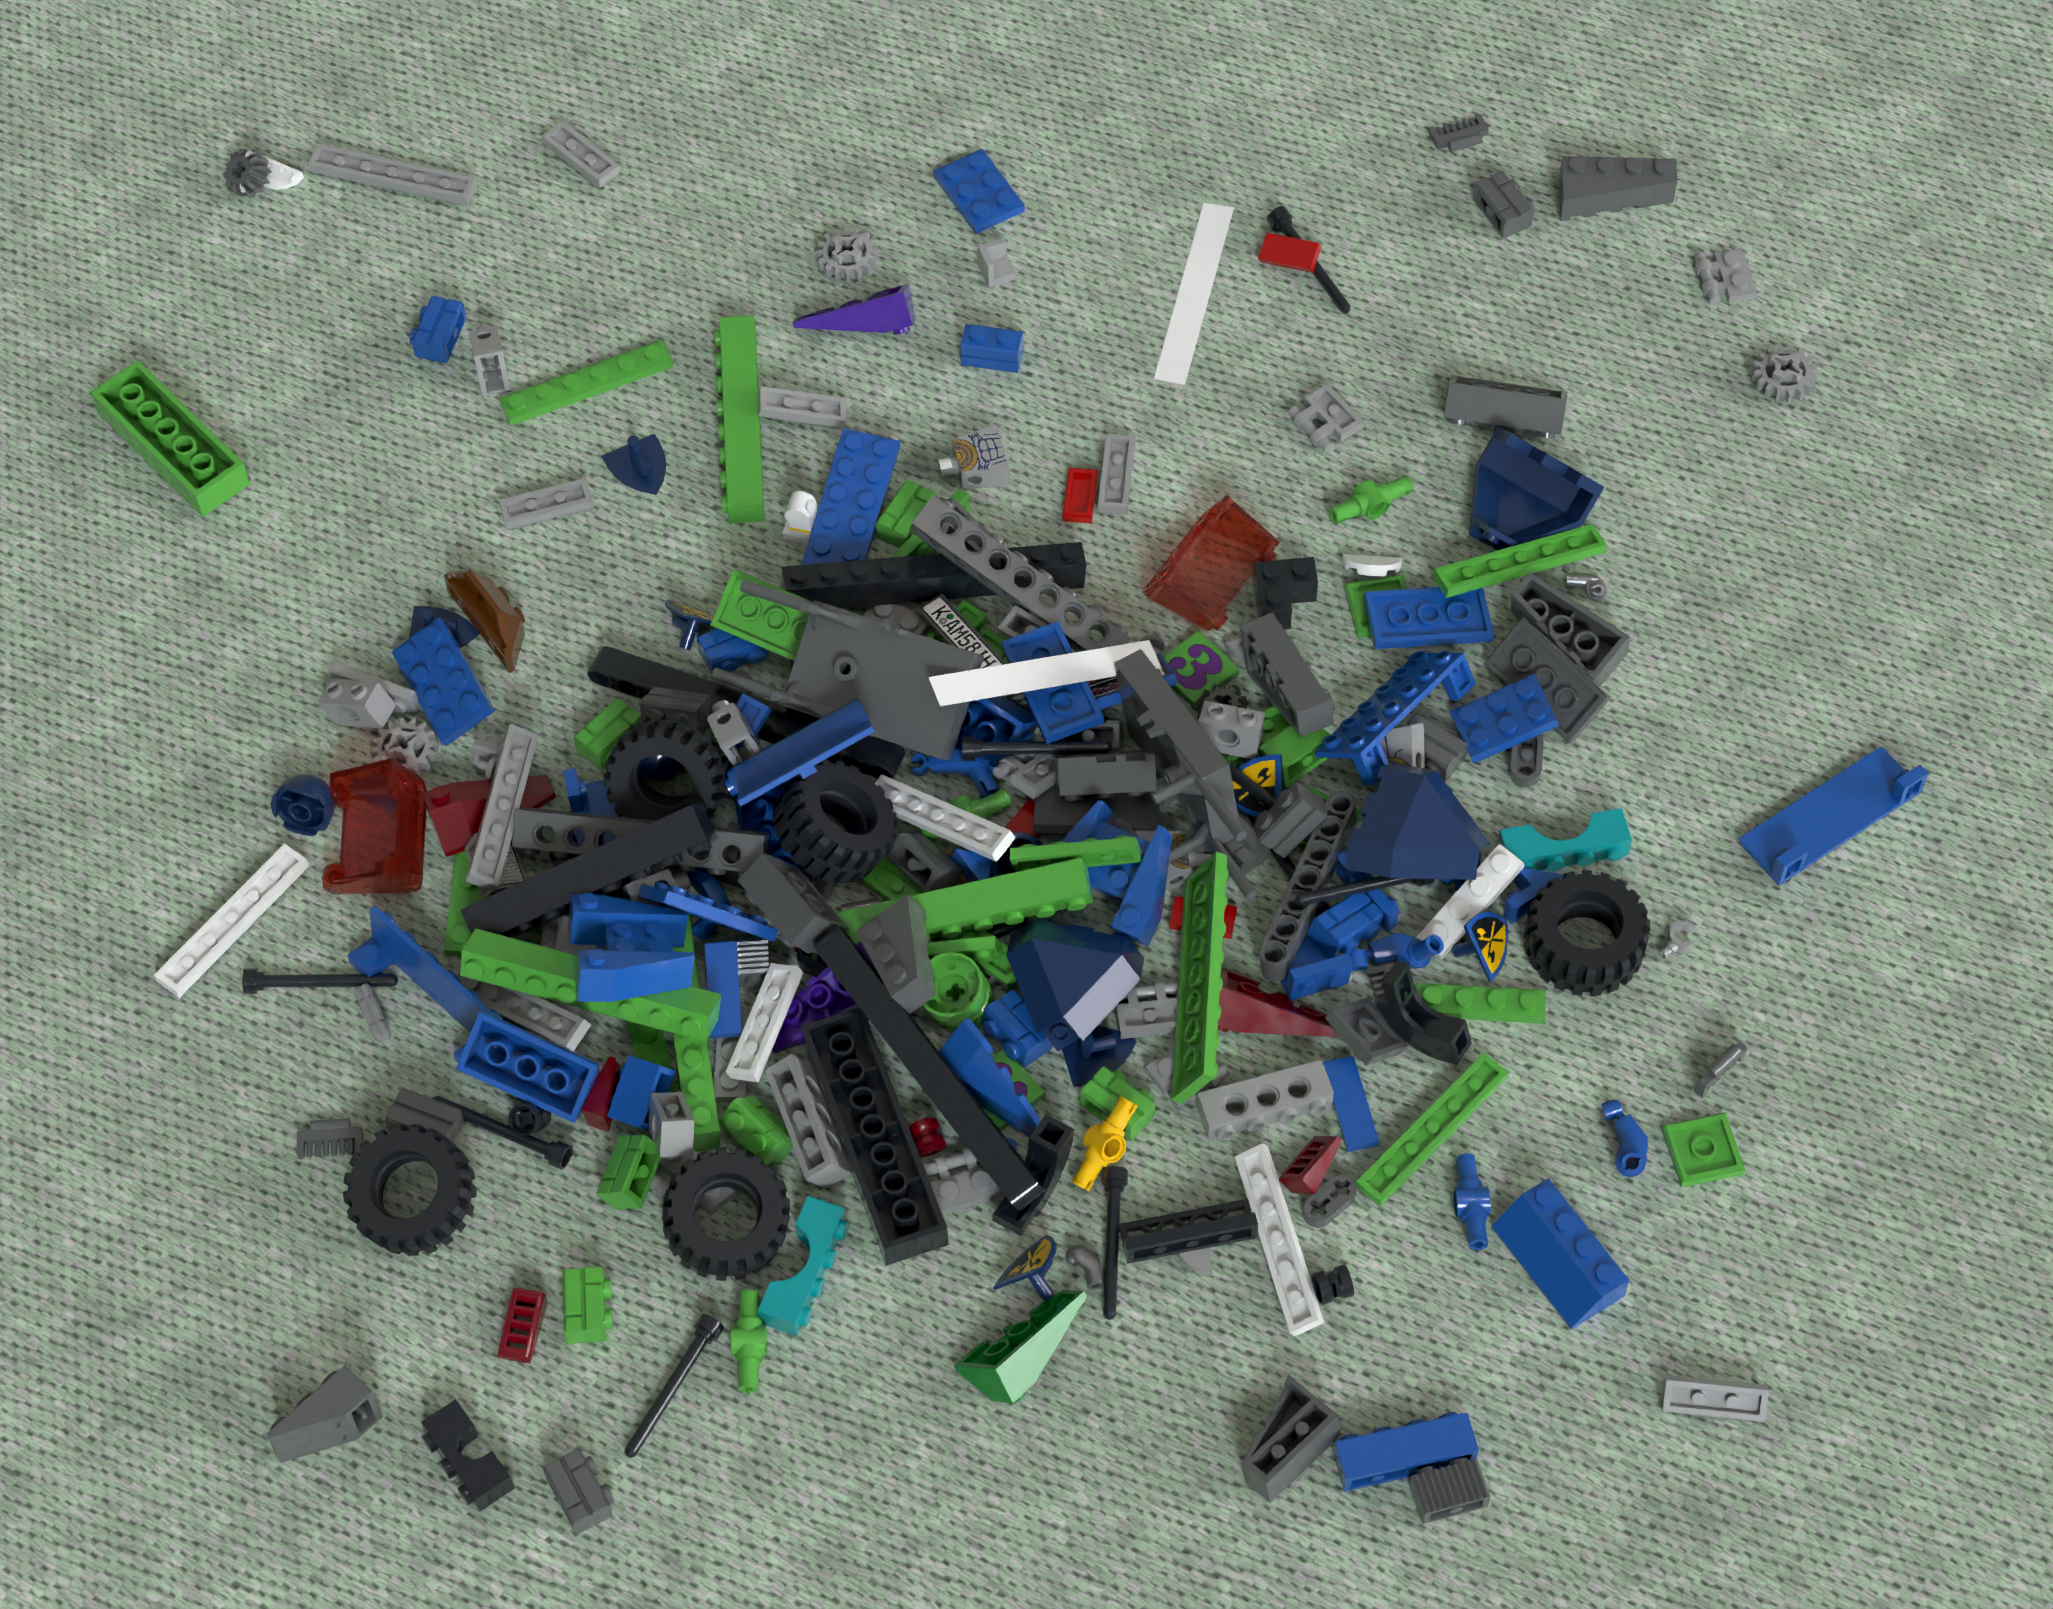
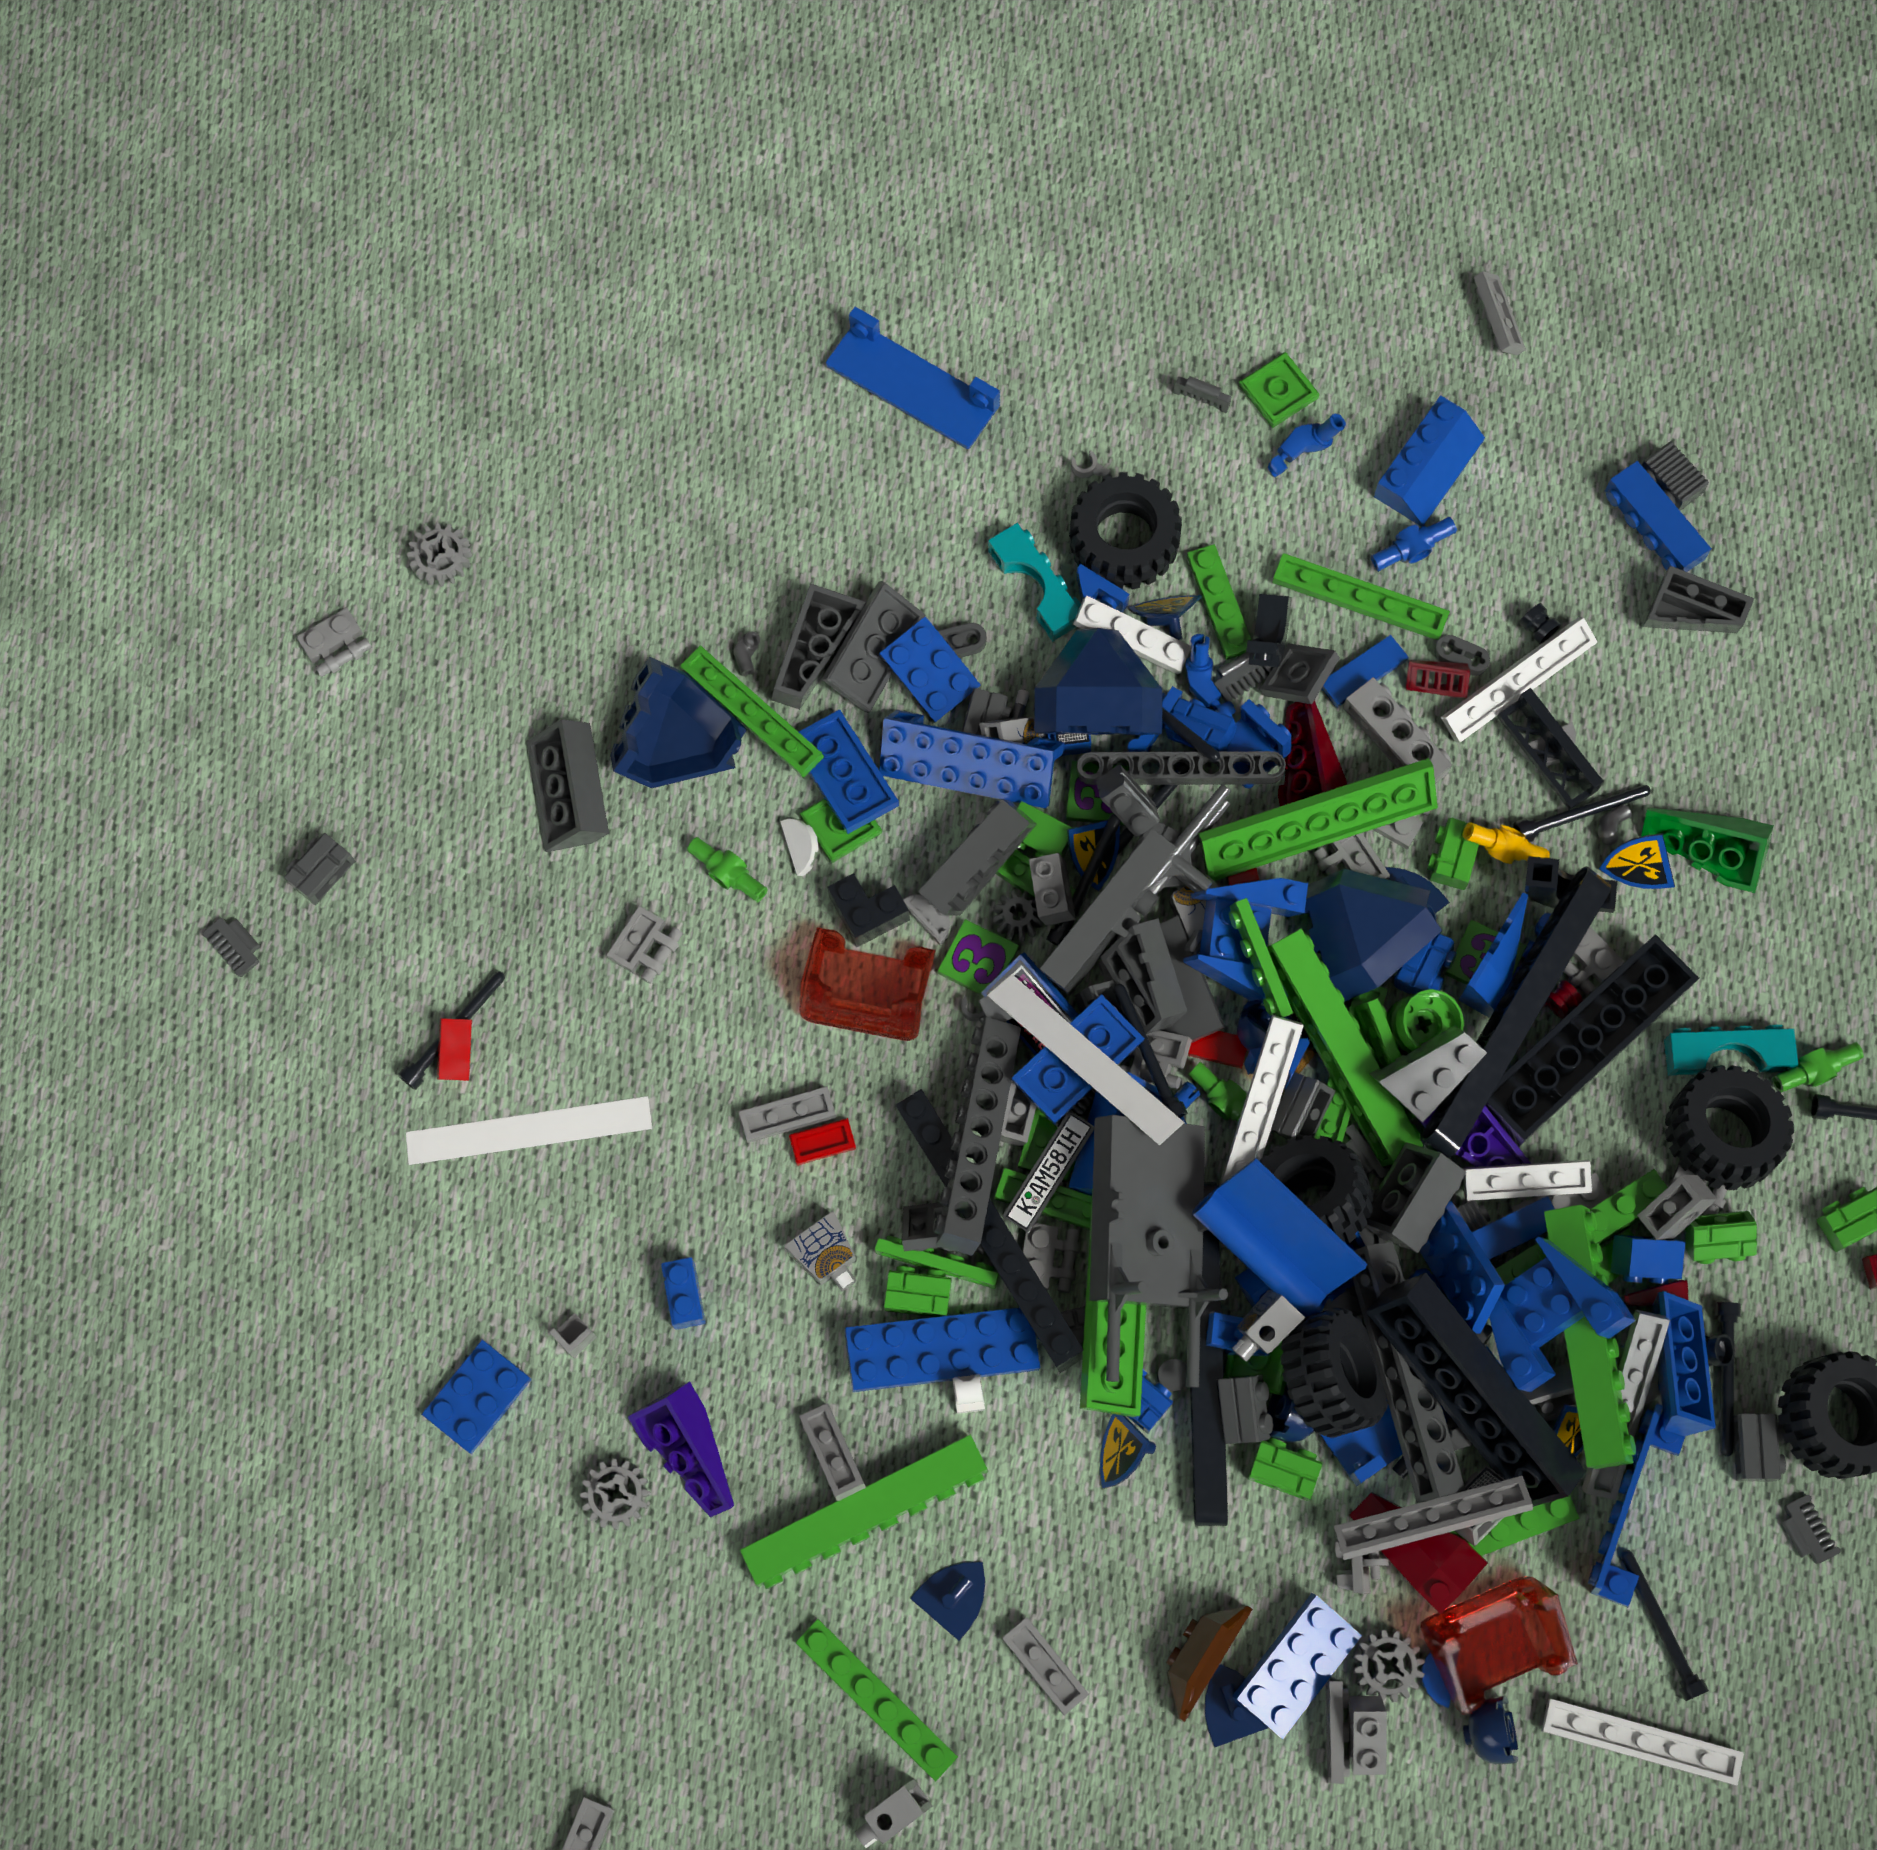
camera: 110 degrees left, 15 degrees up
(372, 1012) = (1670, 1555): light grey axle -> none
(757, 1129) = (1629, 1142): bright green brick -> none
(808, 1121) = (1601, 1101): light grey brick -> none
(1613, 184) = (263, 783): dark grey wedge -> none

